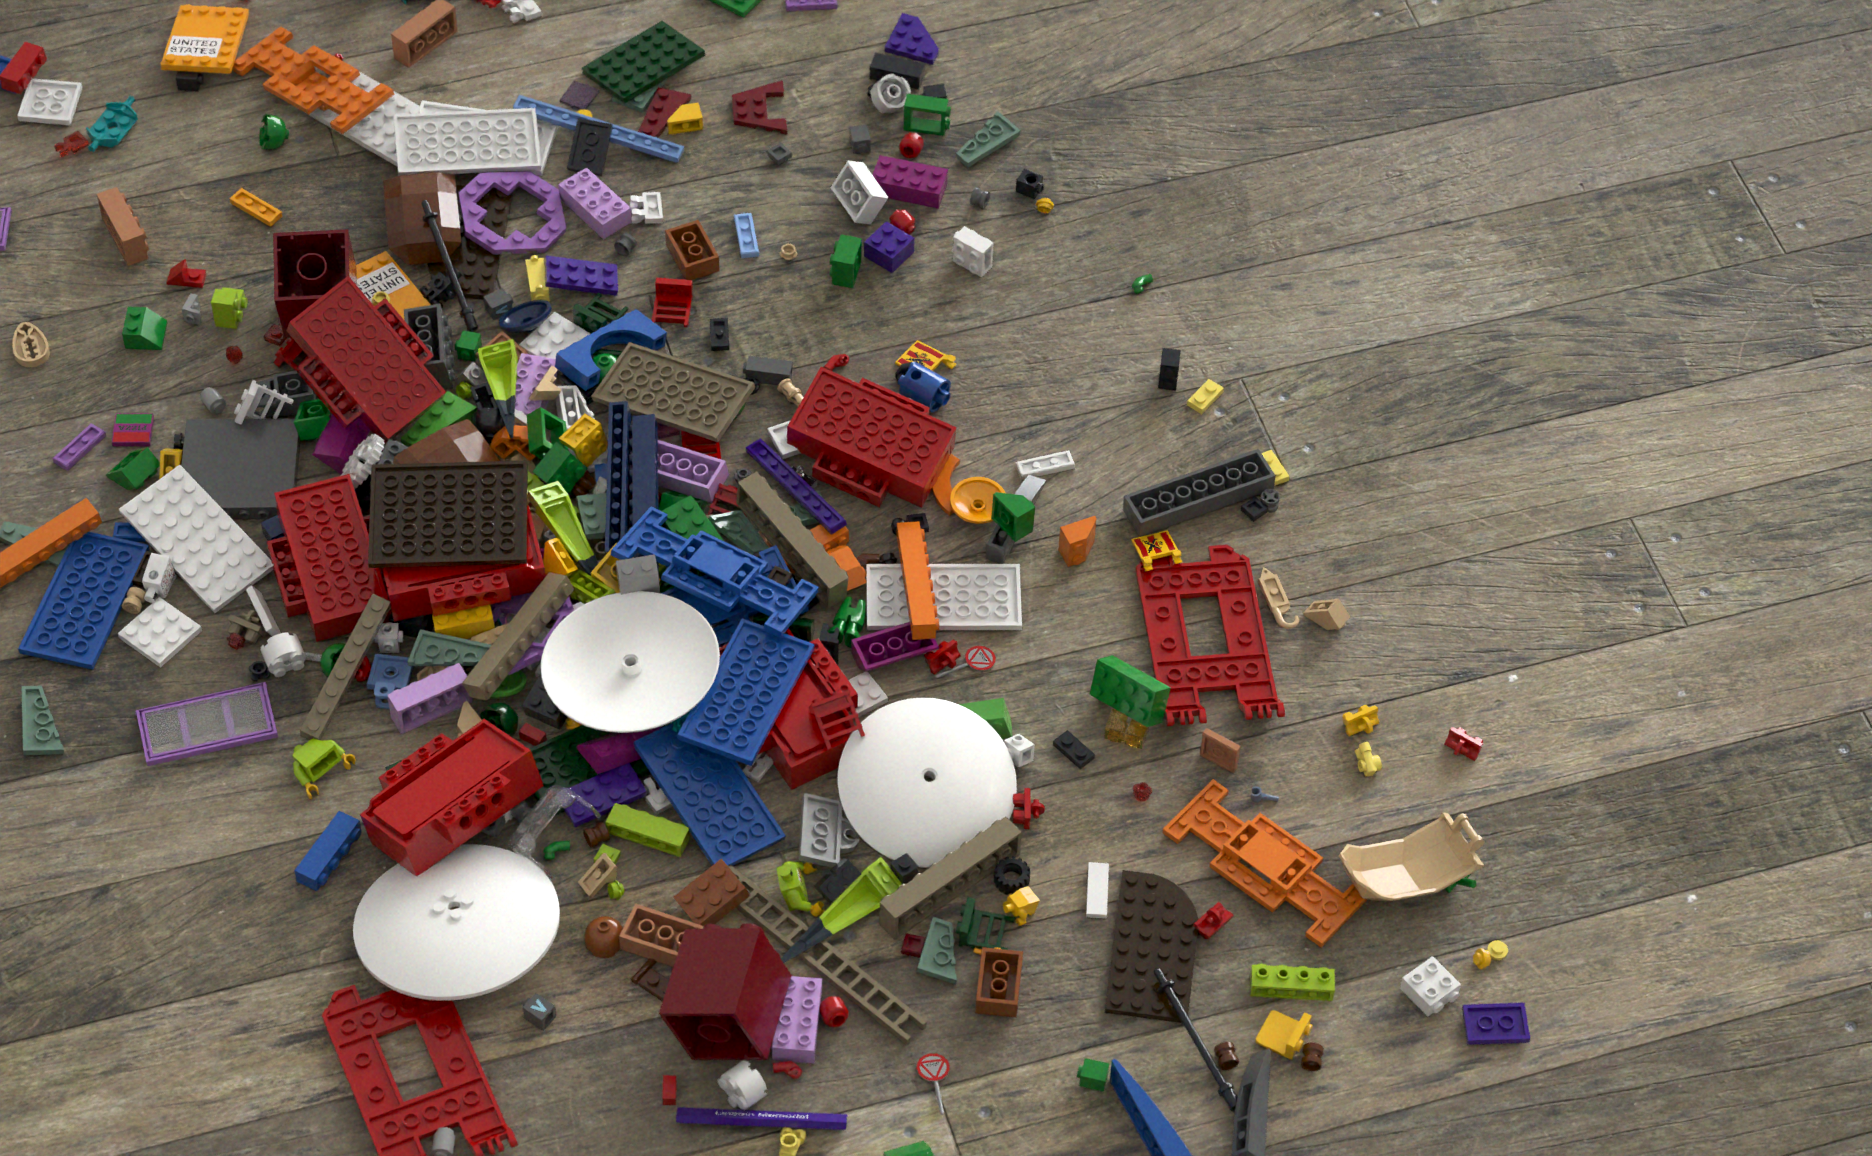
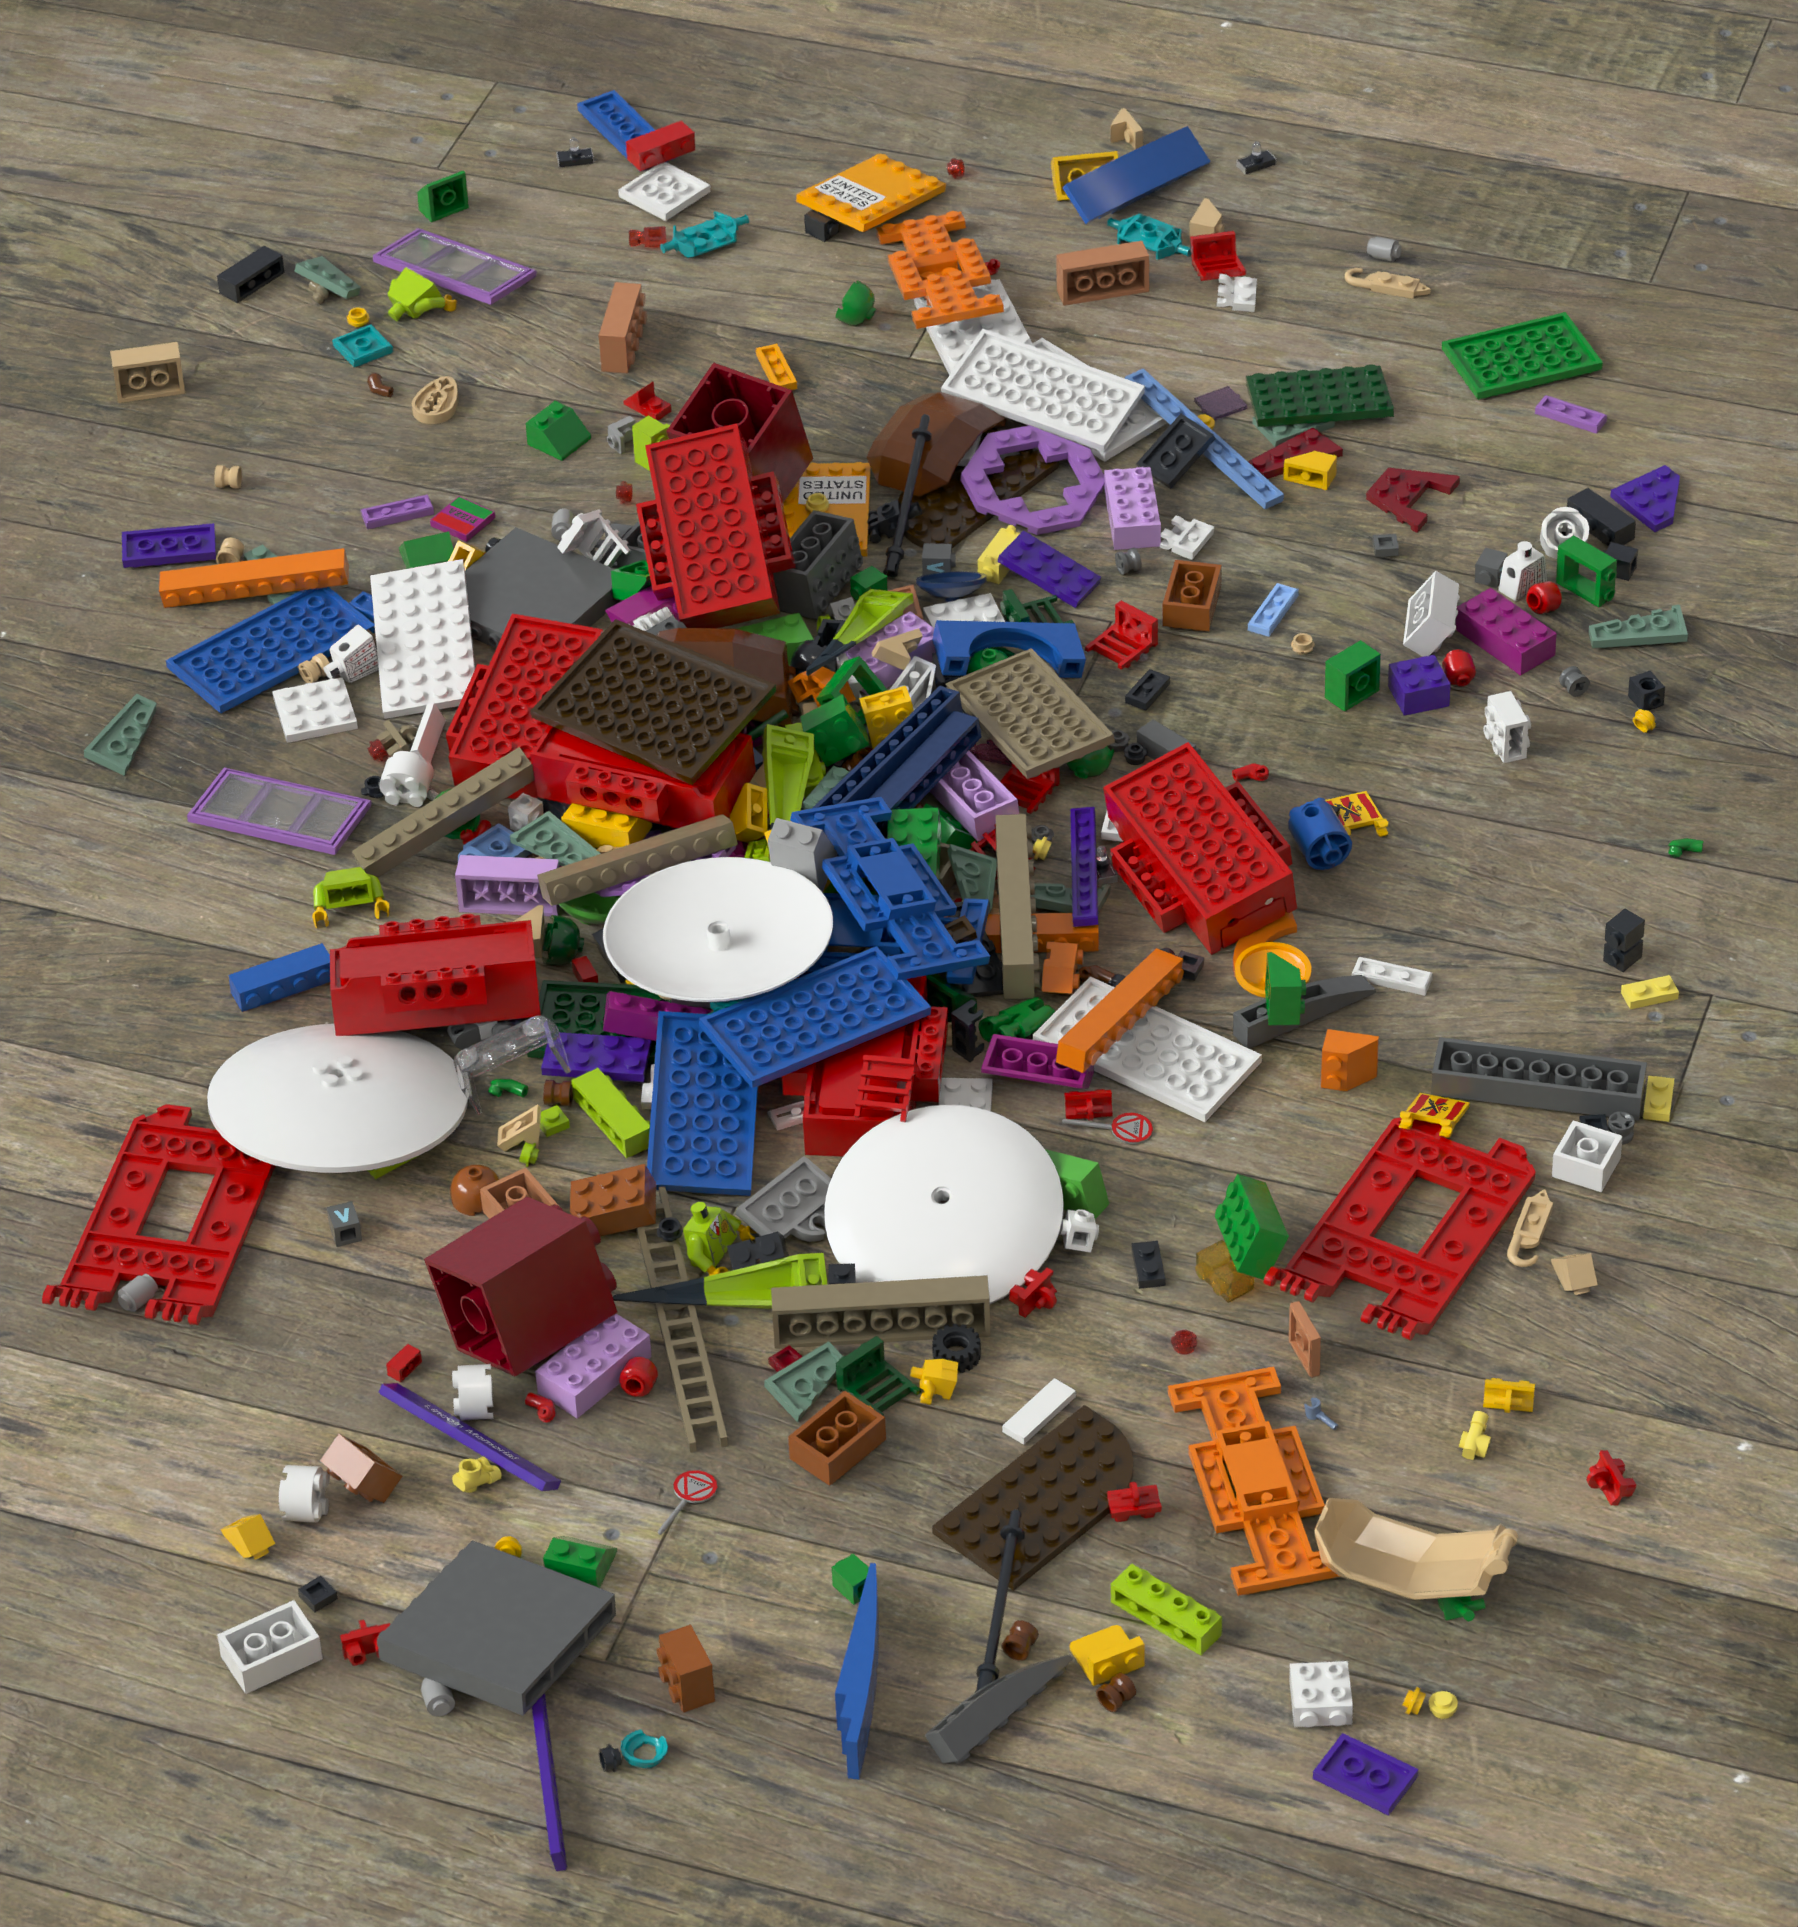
camera: 40 degrees right, 10 degrees down
(765, 890) = (669, 1229): none -> black plate
(885, 126) = (1522, 571): none -> white torso
(1271, 531) = (1587, 1156): none -> white brick

